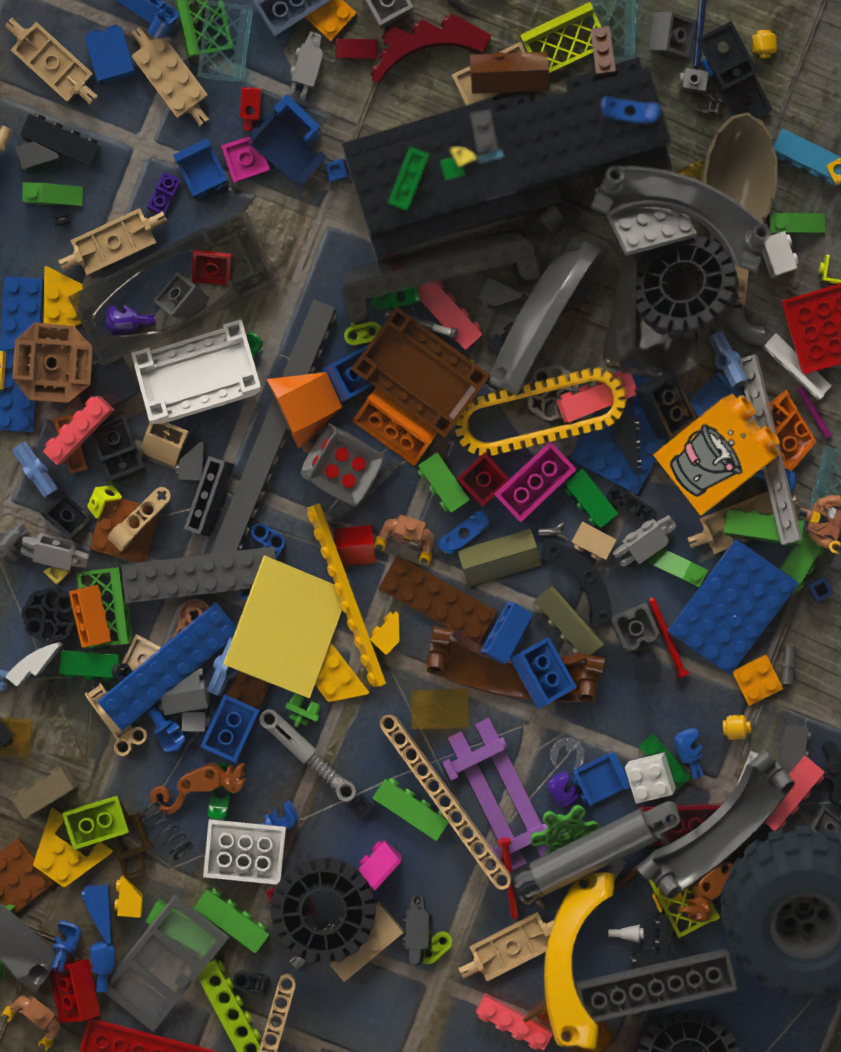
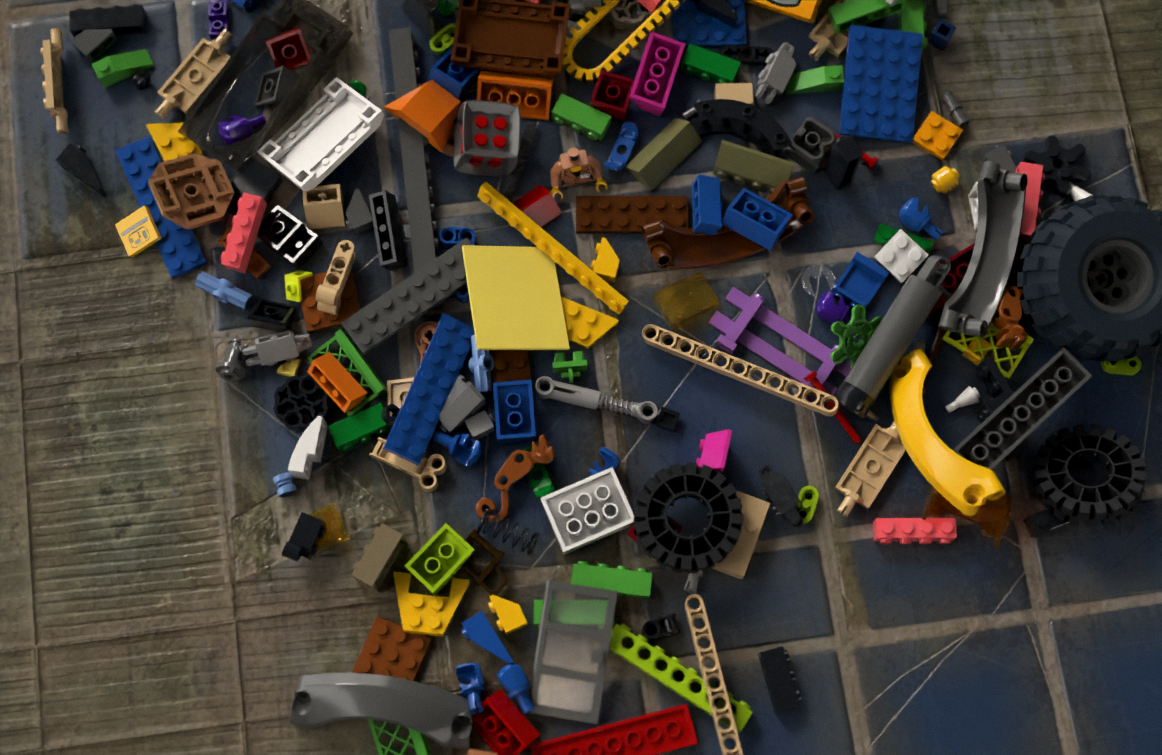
camera: 25 degrees left, 15 degrees down
(410, 808) = (712, 397): bright green brick -> none

